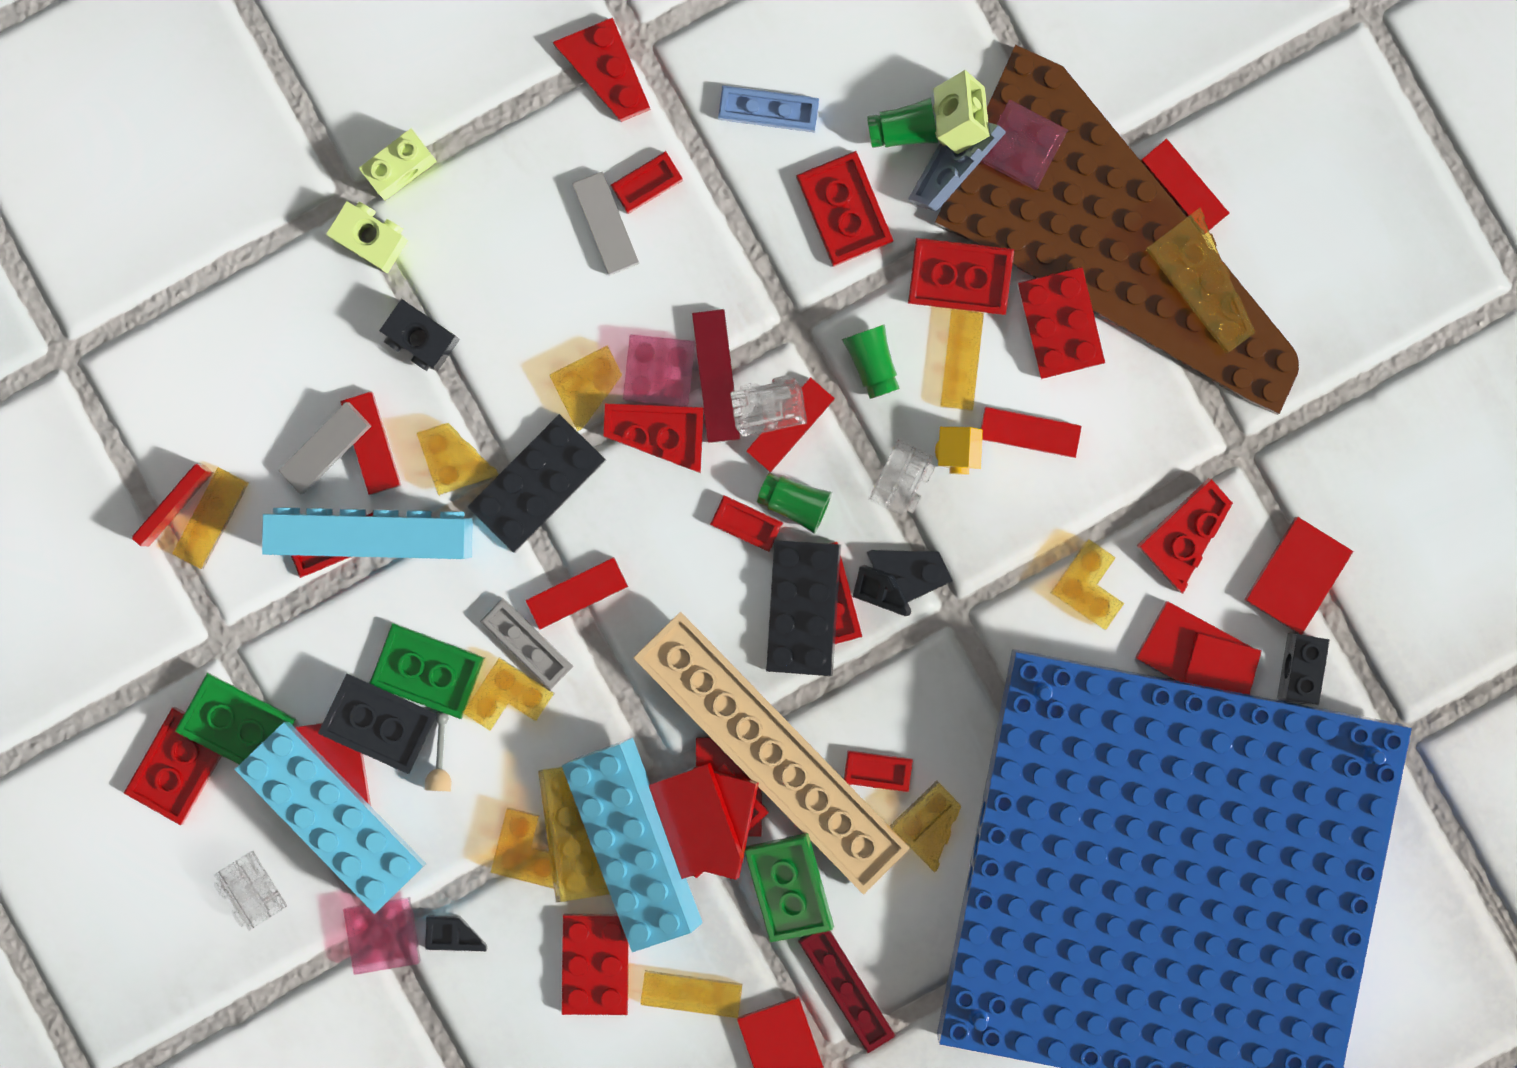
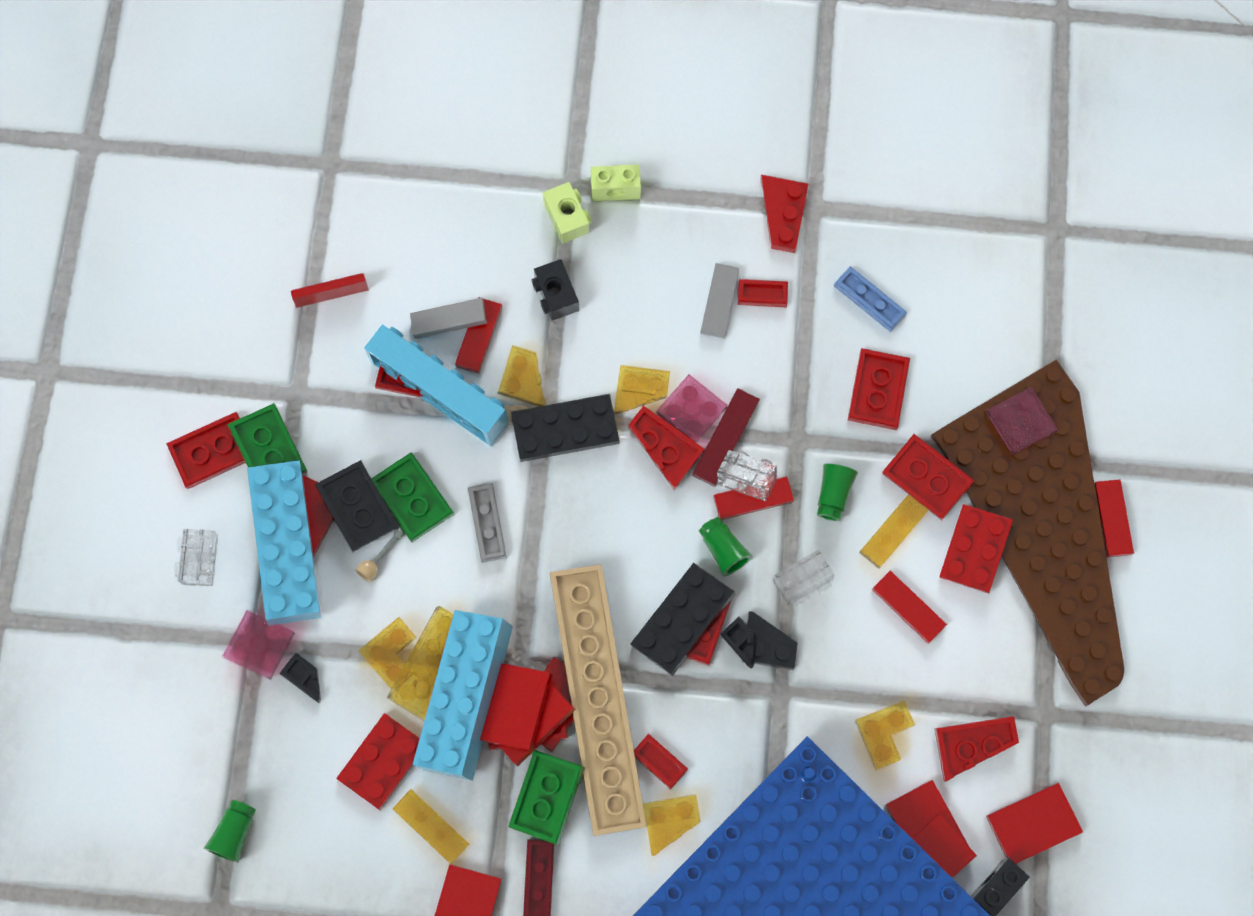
camera: 30 degrees right, 15 degrees down
(210, 518) = (346, 315): clear yellow tile -> none
(503, 687) = (451, 539): clear yellow plate -> none
(577, 593) = (542, 512): red tile -> none
(746, 523) = (682, 541): red tile -> none
(903, 125) = (951, 361): green plant -> none
(948, 170) = (971, 401): sand blue wing -> none
(959, 449) = (855, 584): yellow brick -> none
(960, 112) = (994, 373): yellowish green brick -> none
(1197, 272) = (1088, 573): clear yellow wing -> none

